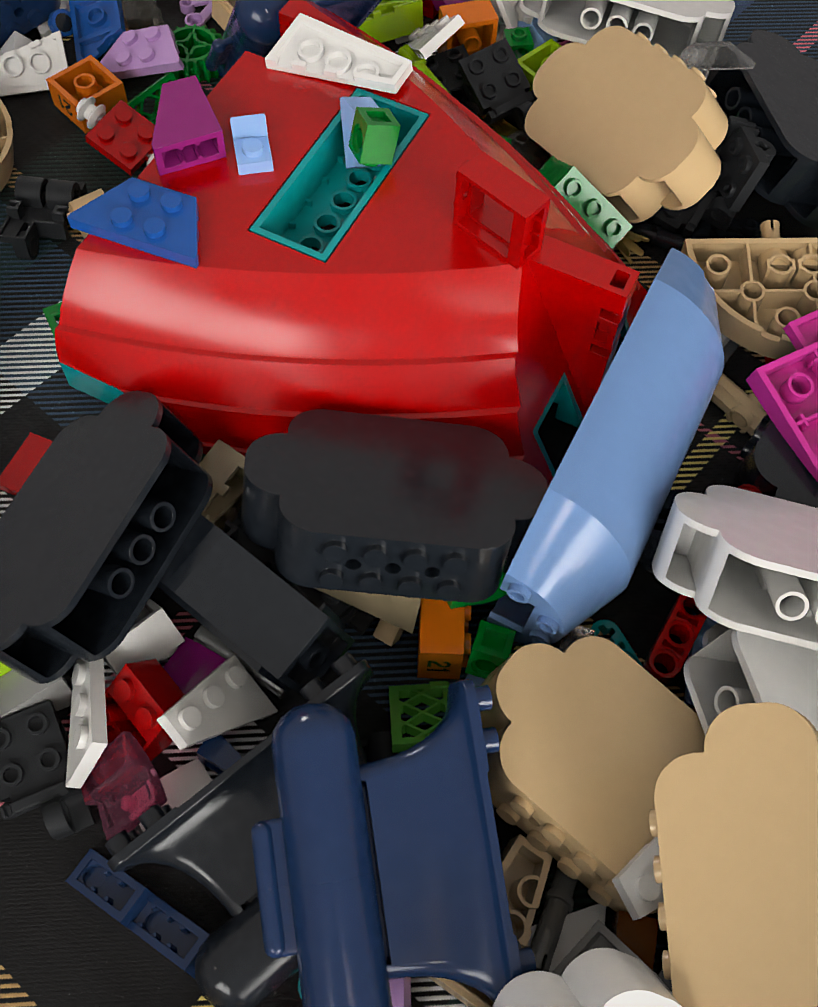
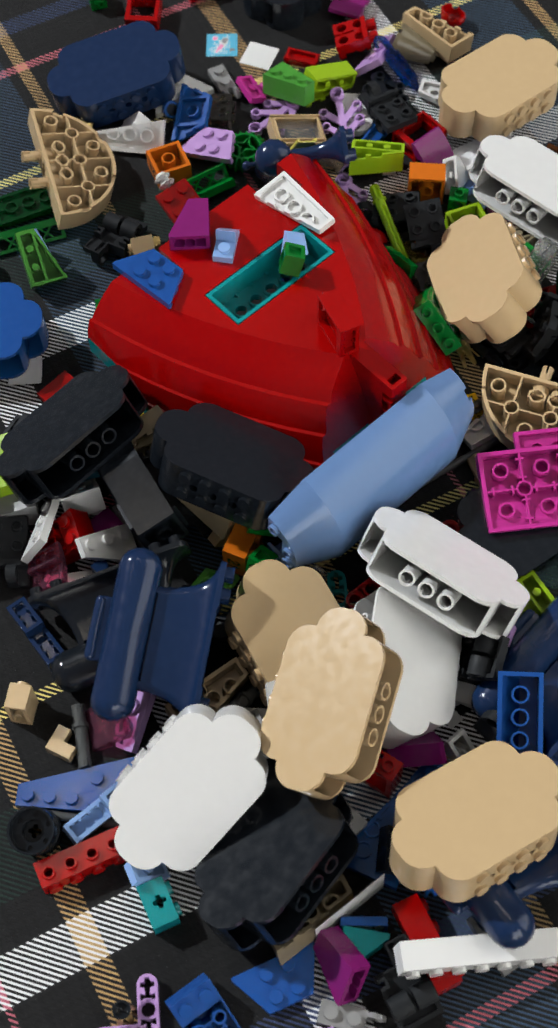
camera: 25 degrees right, 0 degrees up
(432, 36) = (393, 183): white wing -> none

